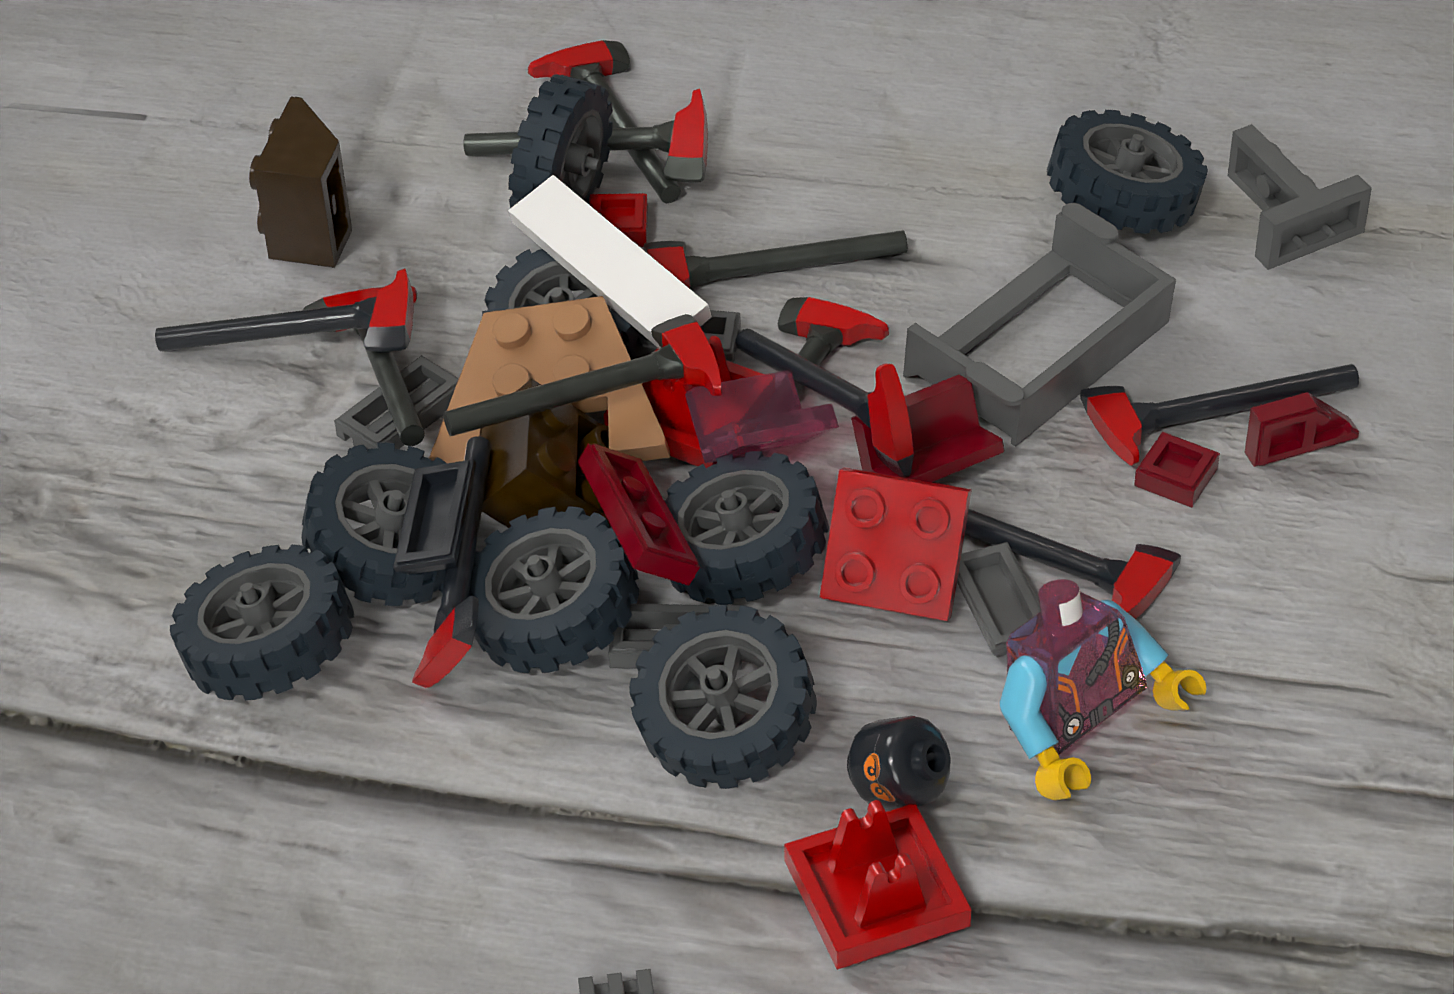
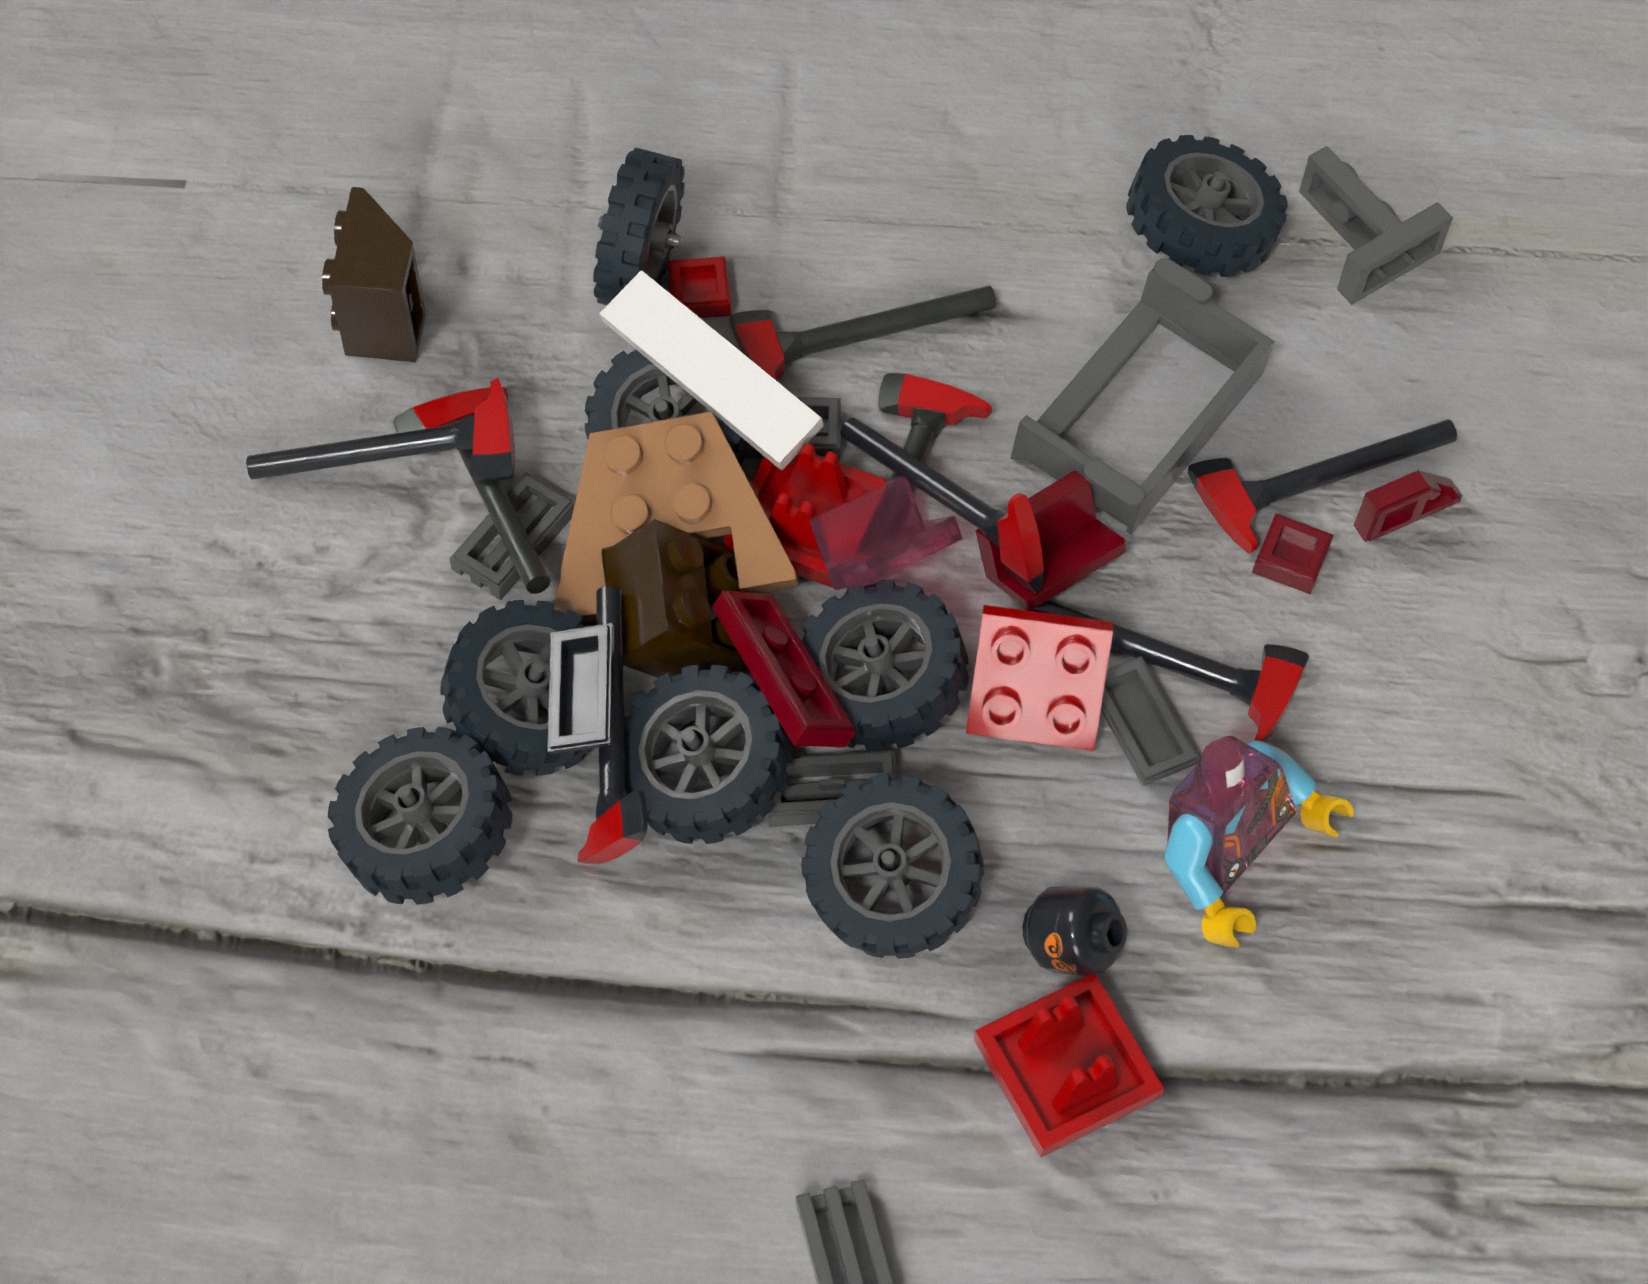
camera: 10 degrees left, 15 degrees up
(591, 64) = (637, 97): pearl dark grey piece -> none
(682, 138) = (754, 190): pearl dark grey piece -> none
(682, 354) = (806, 485): pearl dark grey piece -> none

